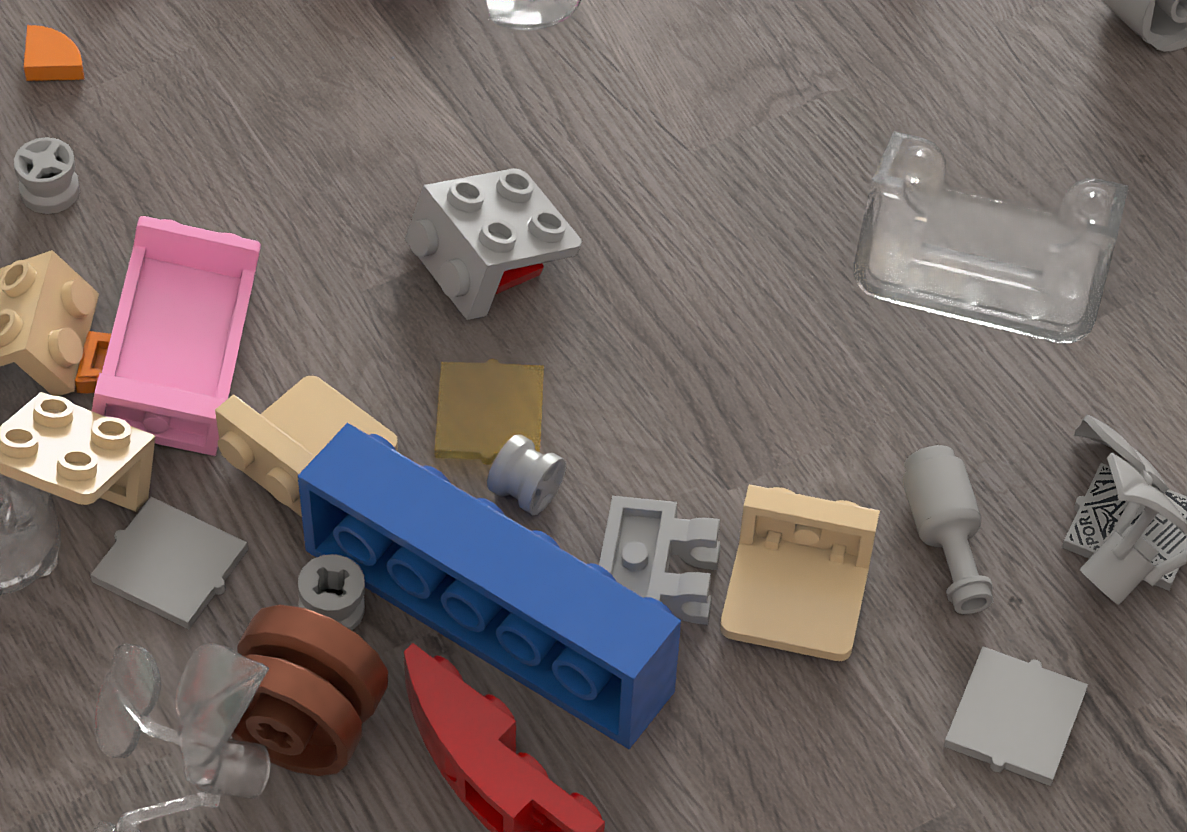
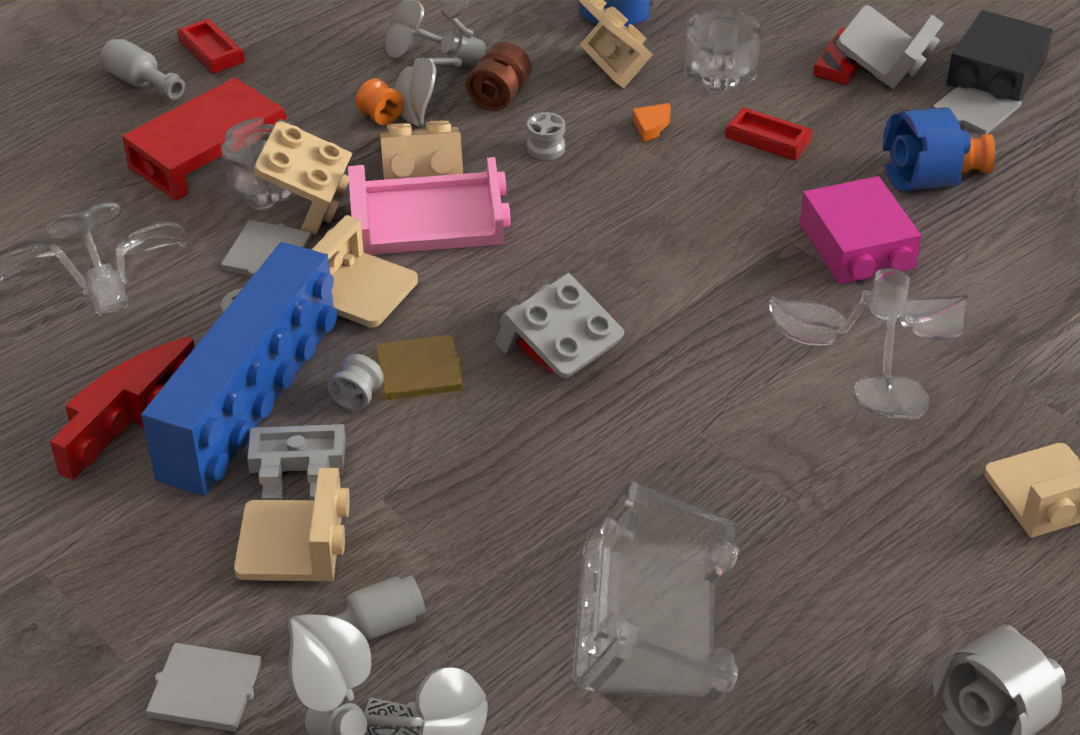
camera: 80 degrees right, 10 degrees down
(315, 692) = (147, 295): copper wheel -> none

